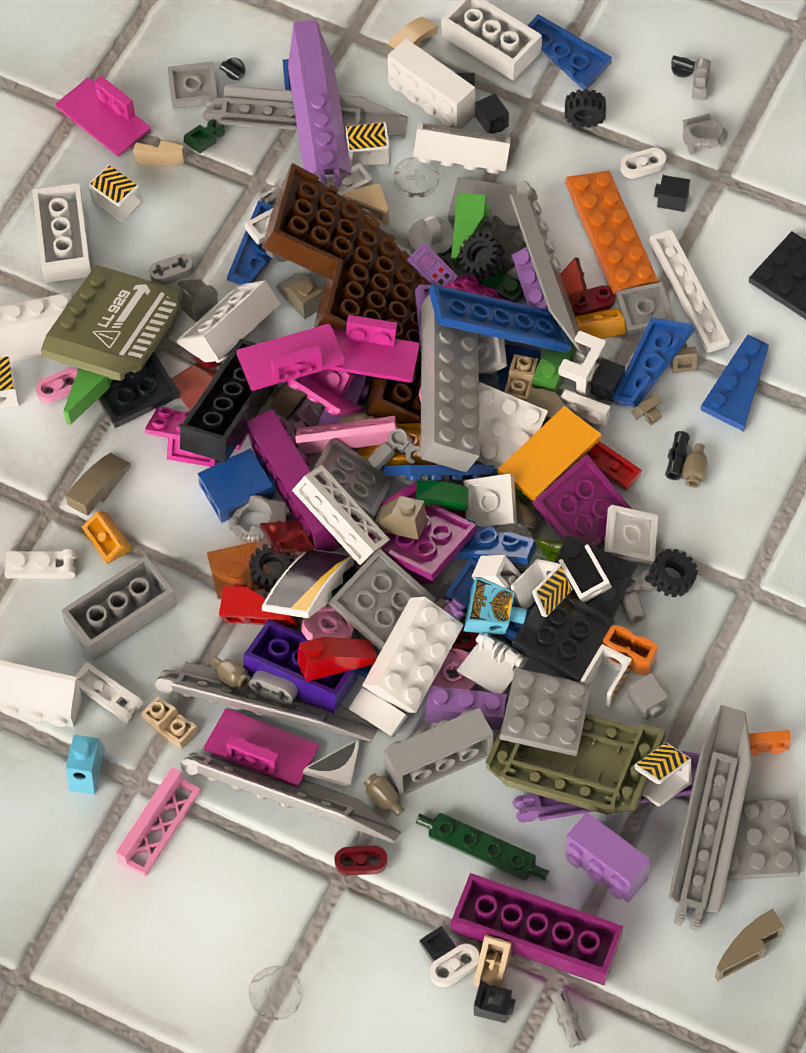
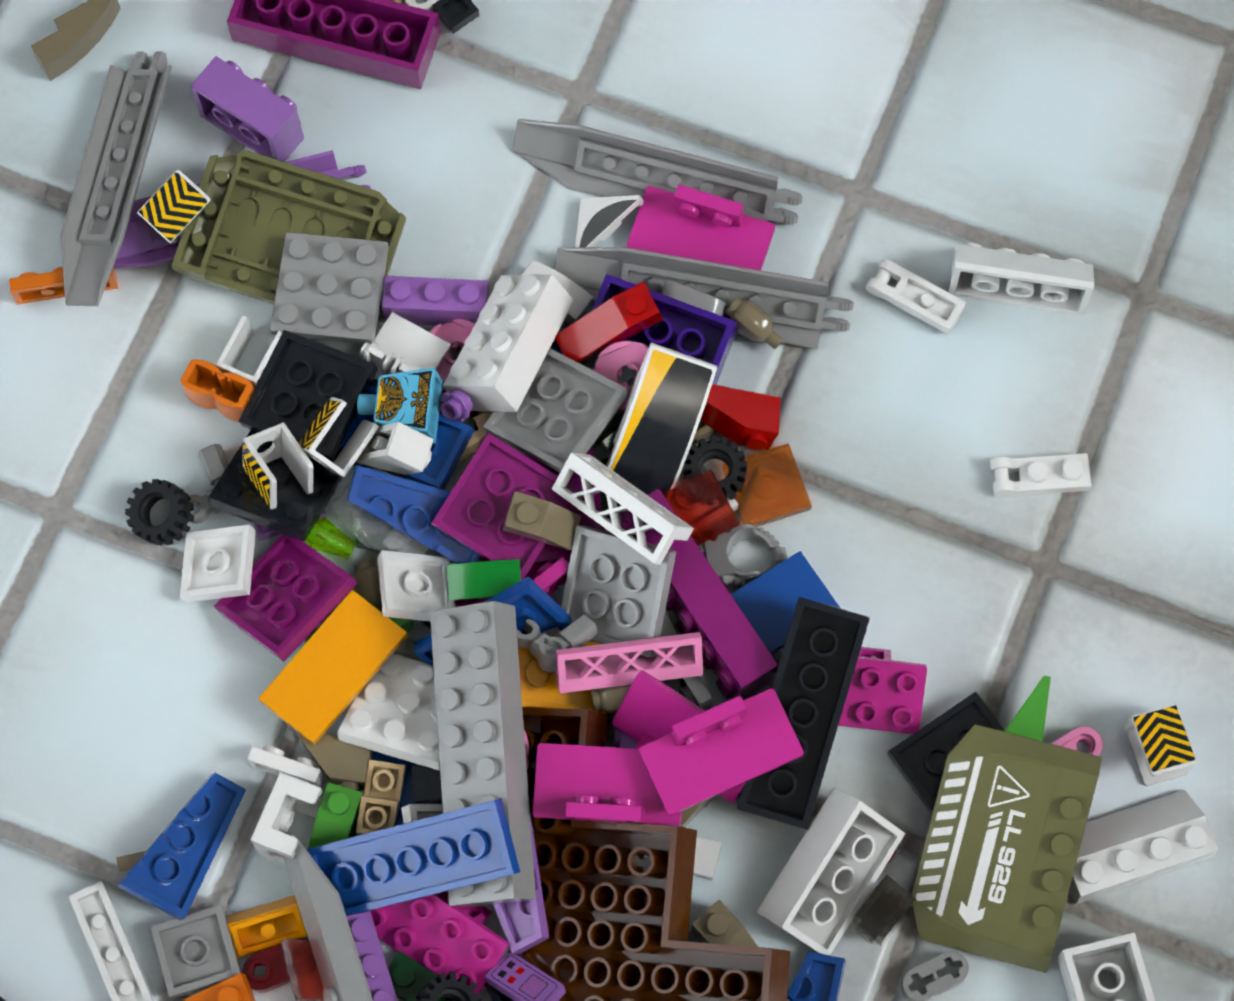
camera: 175 degrees right, 10 degrees up
(84, 758) = (926, 188): medium azure torso -> none
(97, 483) = (982, 598): dark tan slope -> none
(106, 537) = (955, 524): light orange slope -> none
(119, 607) = (918, 403): light grey brick -> none
(149, 817) = (840, 114): bright pink fence -> none
(169, 723) = (824, 264): tan slope -> none
(192, 383) = (868, 776): clear red piece -> none
(361, 860) = (558, 102): dark red plate -> none
(383, 793) = (537, 190): dark tan plant -> none
(438, 751) = (469, 228): light grey brick -> none
(482, 846) = (408, 134): dark green plate -> none
(606, 379) = (247, 813): black brick -> none
(614, 466) = (242, 678): red plate -> none
(648, 410) = (191, 771): dark tan tile -> none
(648, 697) = (195, 330): light grey brick -> none
(677, 455) = (151, 702): black pin -> none
(695, 467) = (124, 683): dark tan plant -> none
(735, 389) = (61, 828): blue wing -> none
(764, 842) = (47, 167): light grey plate -> none

